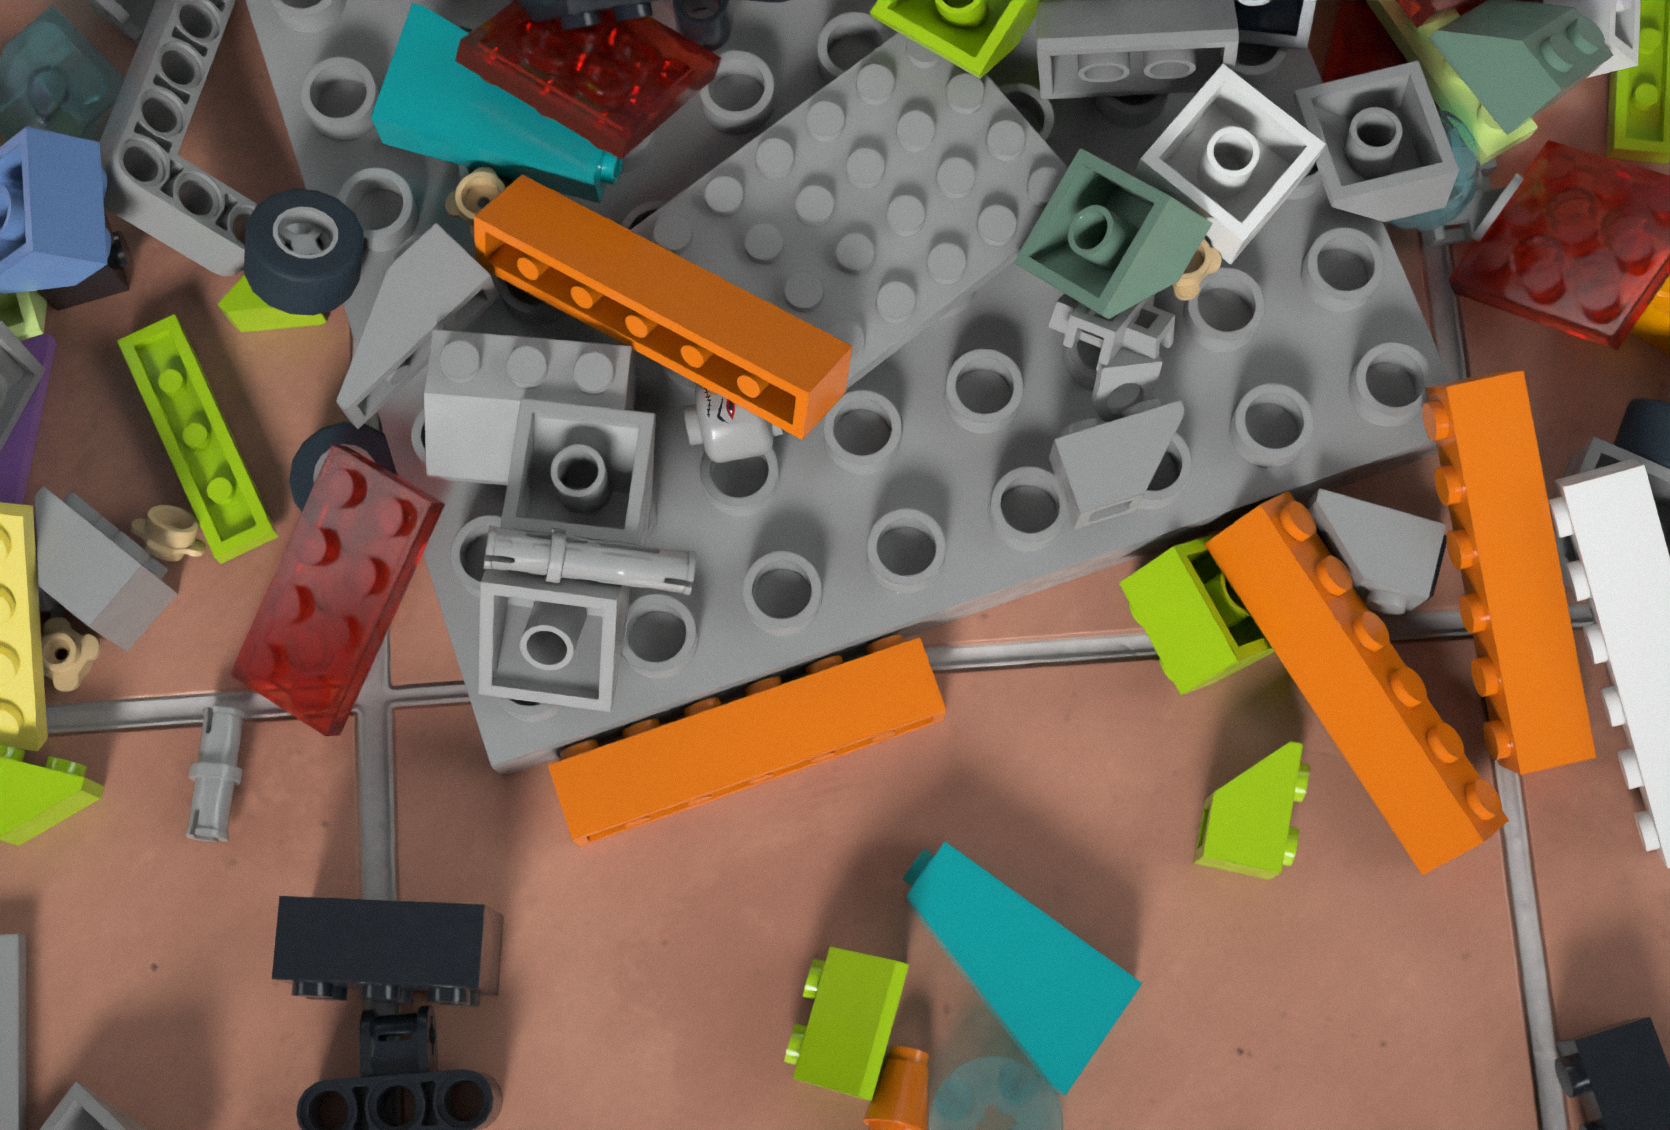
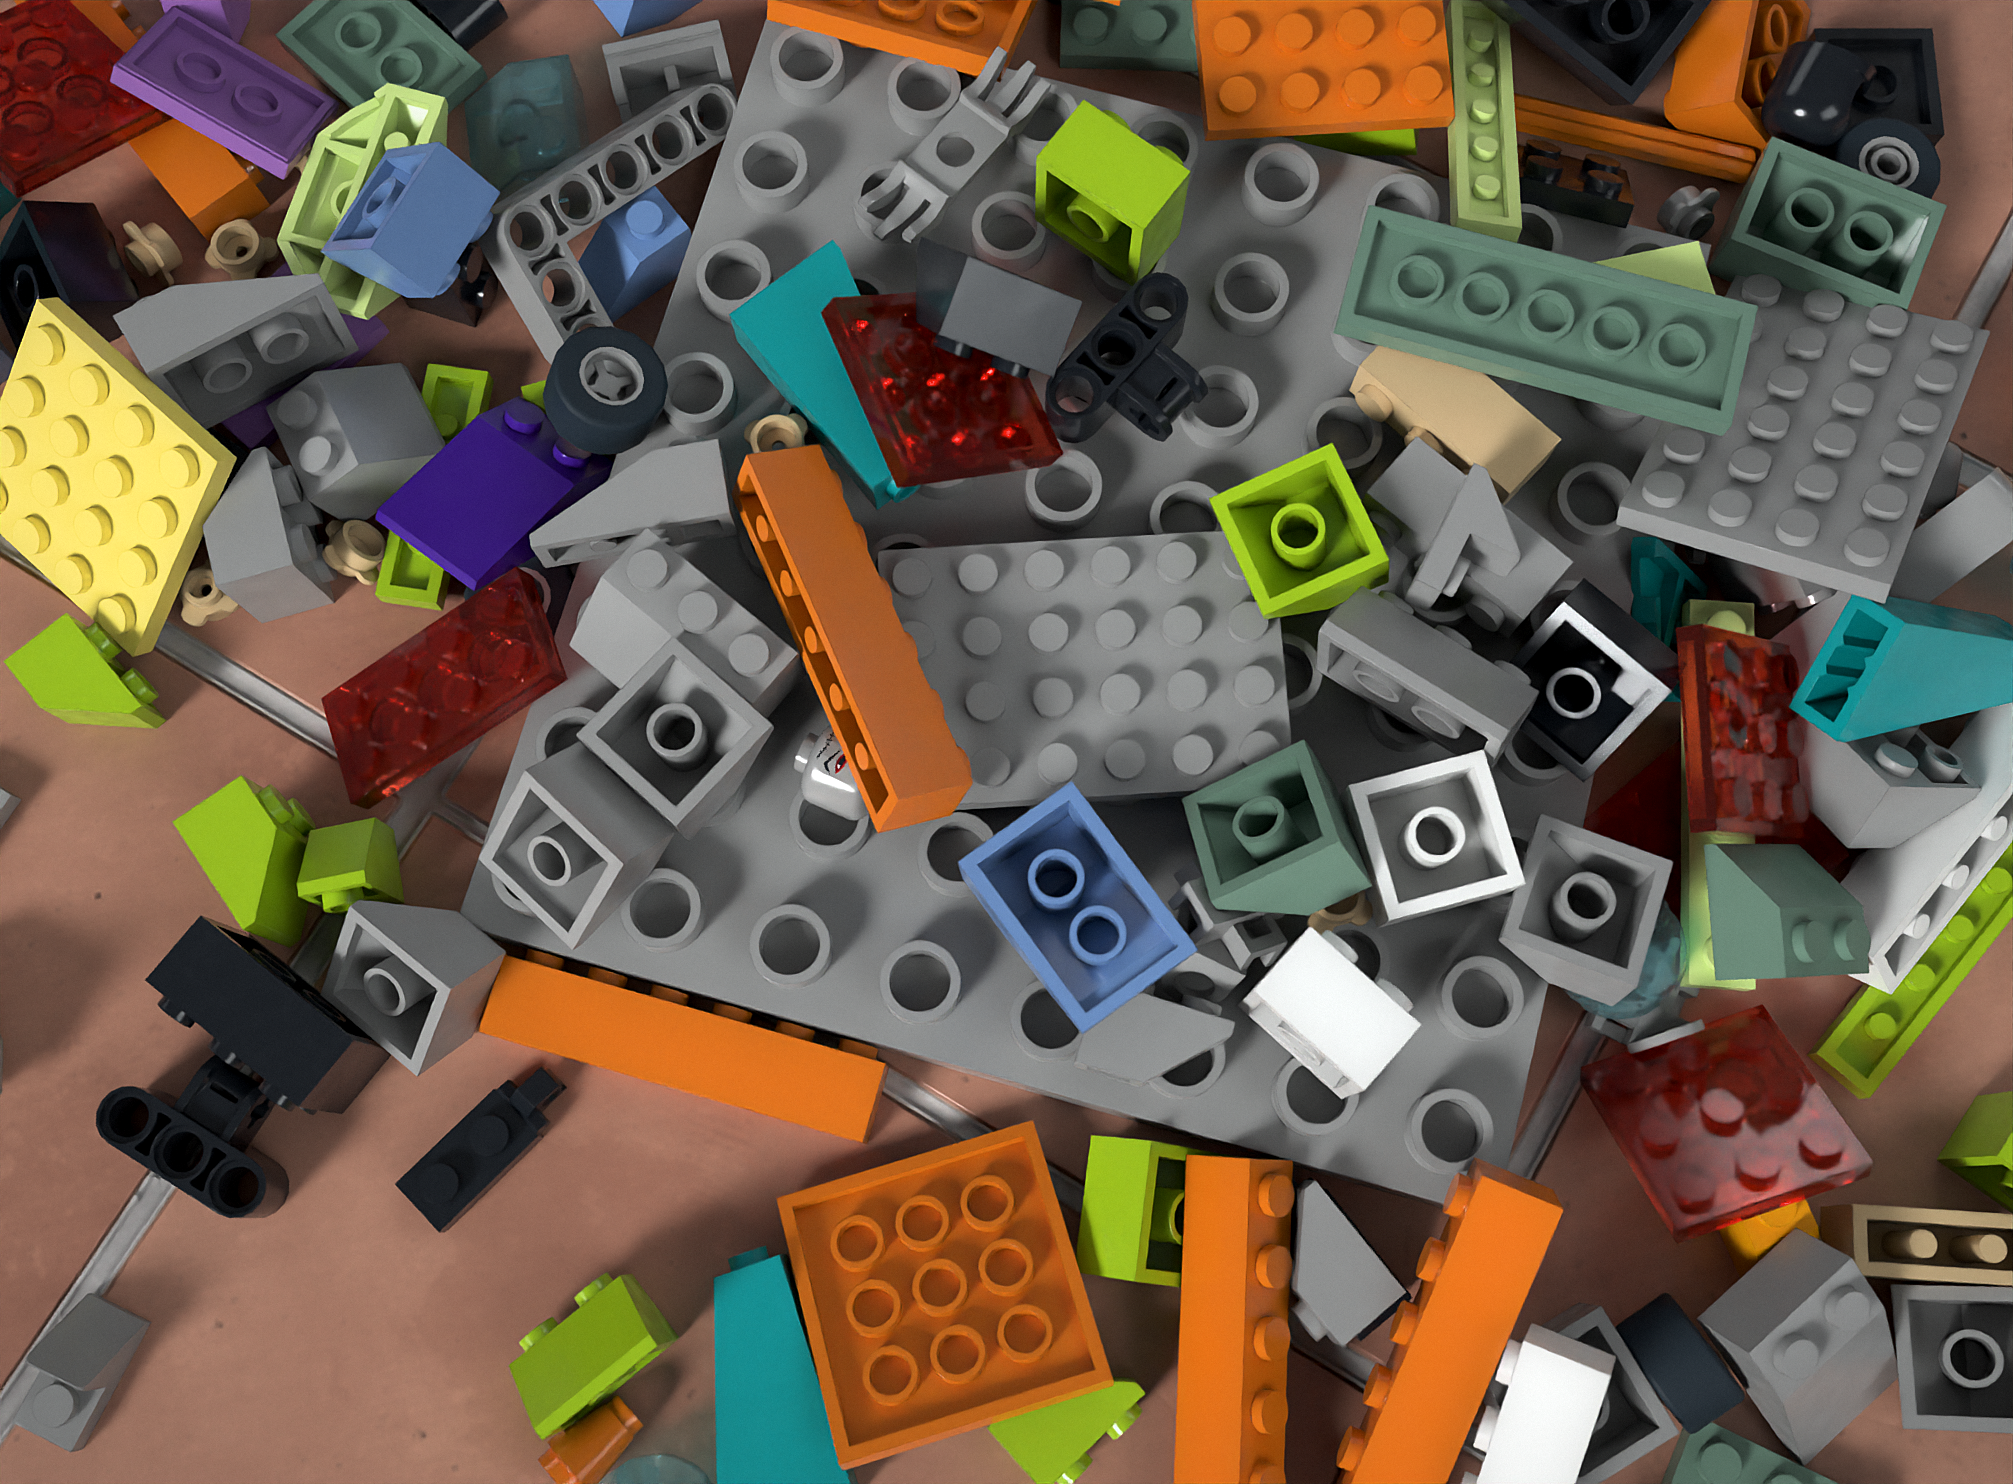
camera: 35 degrees right, 0 degrees up
(106, 436) = (355, 436): none -> light grey slope
(215, 774) = (264, 756): light grey pin -> none
(232, 129) = (635, 252): none -> medium blue slope
(267, 398) = (491, 491): none -> dark purple slope
(275, 823) = (253, 855): none -> lime slope
(367, 788) = (350, 865): none -> lime slope
(486, 833) = (412, 978): none -> light grey slope
(589, 559) = (616, 804): light grey pin -> none
(636, 938) = (480, 1149): none -> black hinge
(995, 396) = (1076, 907): none -> medium blue slope
(1092, 781) = (941, 1295): none -> orange plate
(1247, 344) = (1331, 1012): none -> white brick

